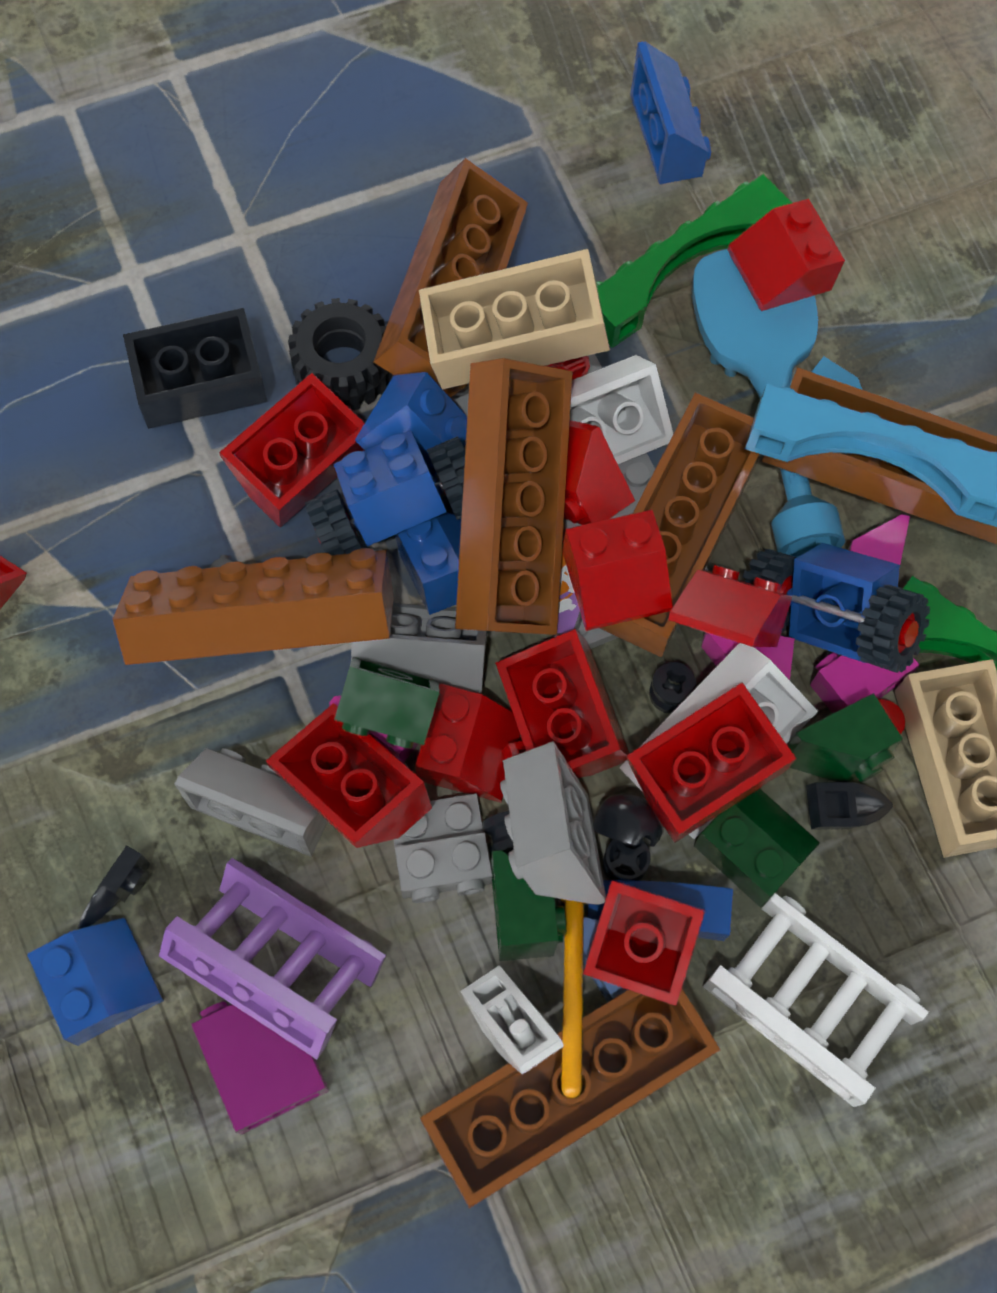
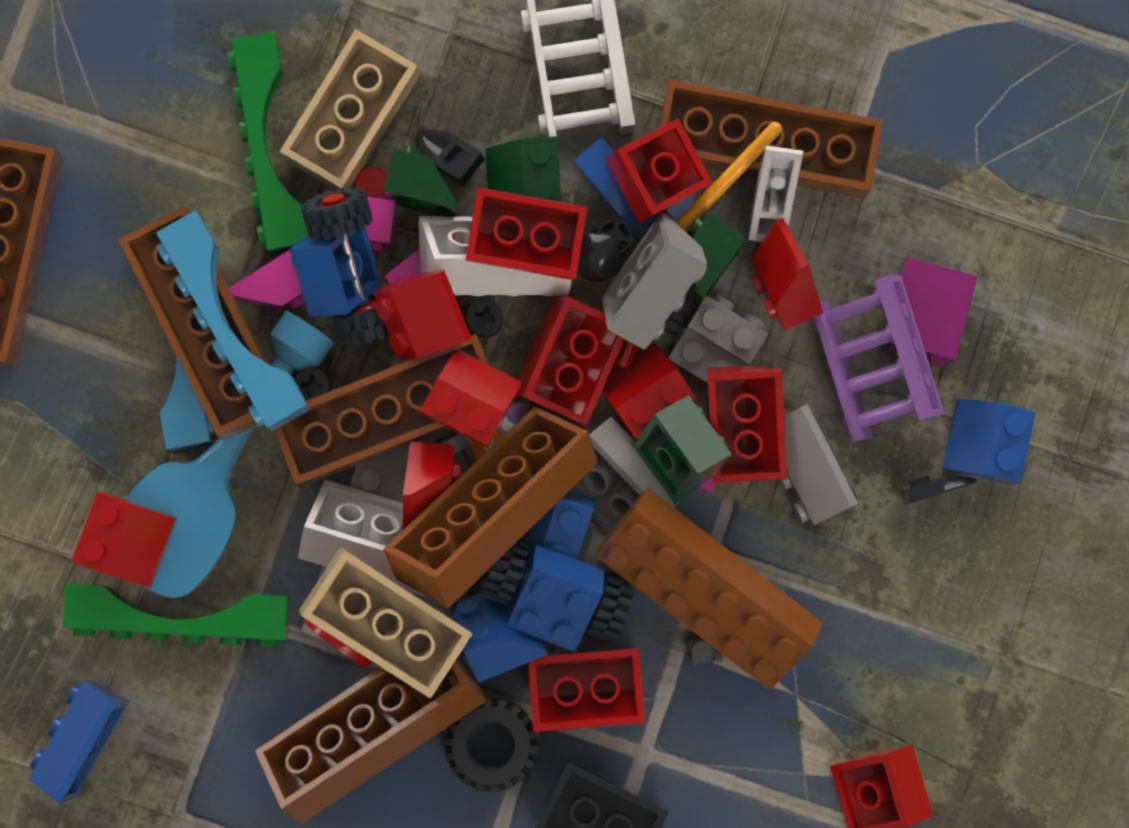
camera: 140 degrees left, 15 degrees up
(428, 951) = (785, 278): none -> red slope
(756, 519) = (319, 385): none -> black wheel

